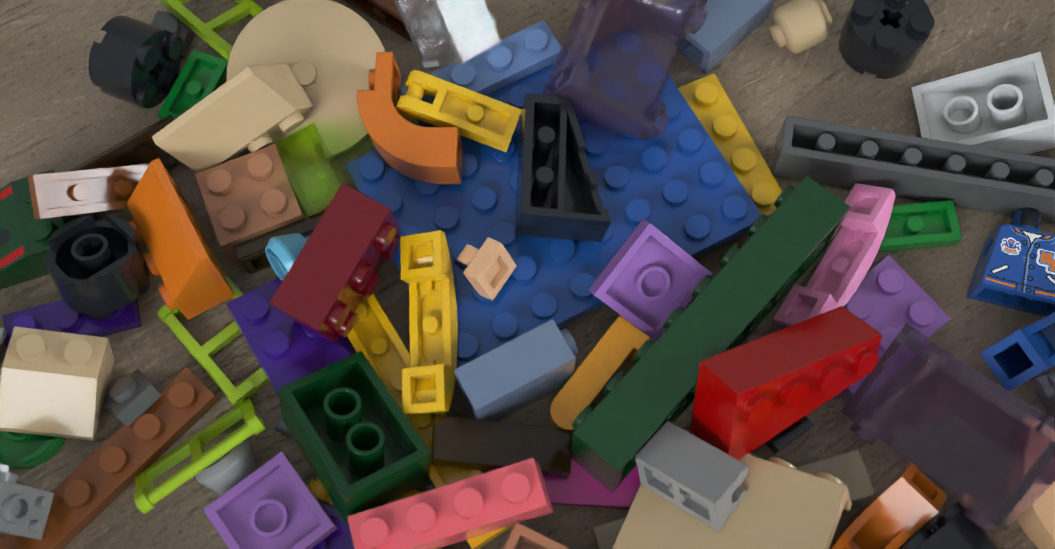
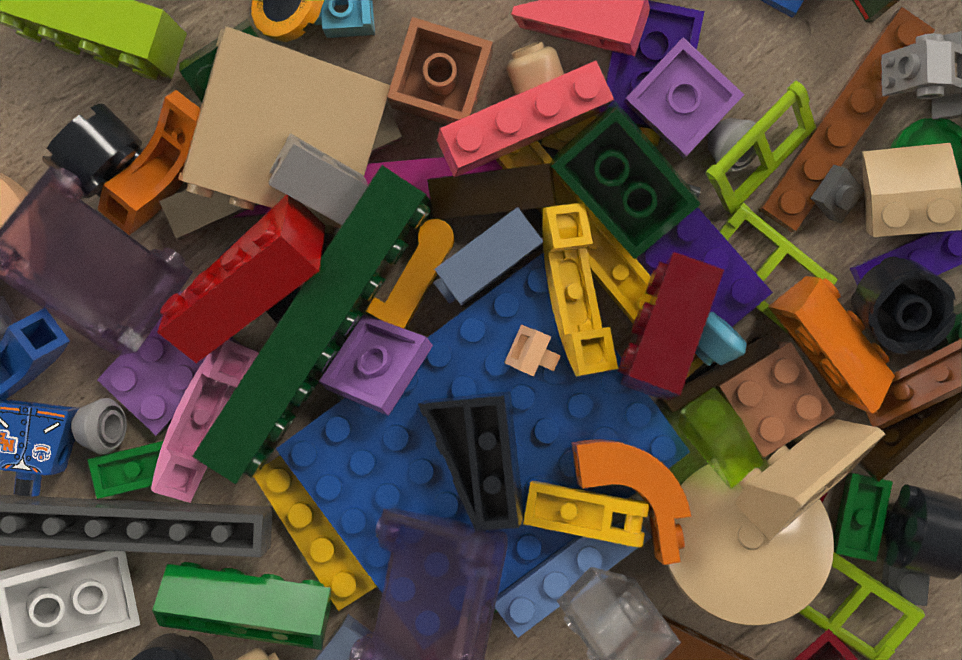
camera: 165 degrees right, 20 degrees up
(807, 84) = (243, 605): none -> brick
(948, 269) = (100, 426): none -> light grey cone

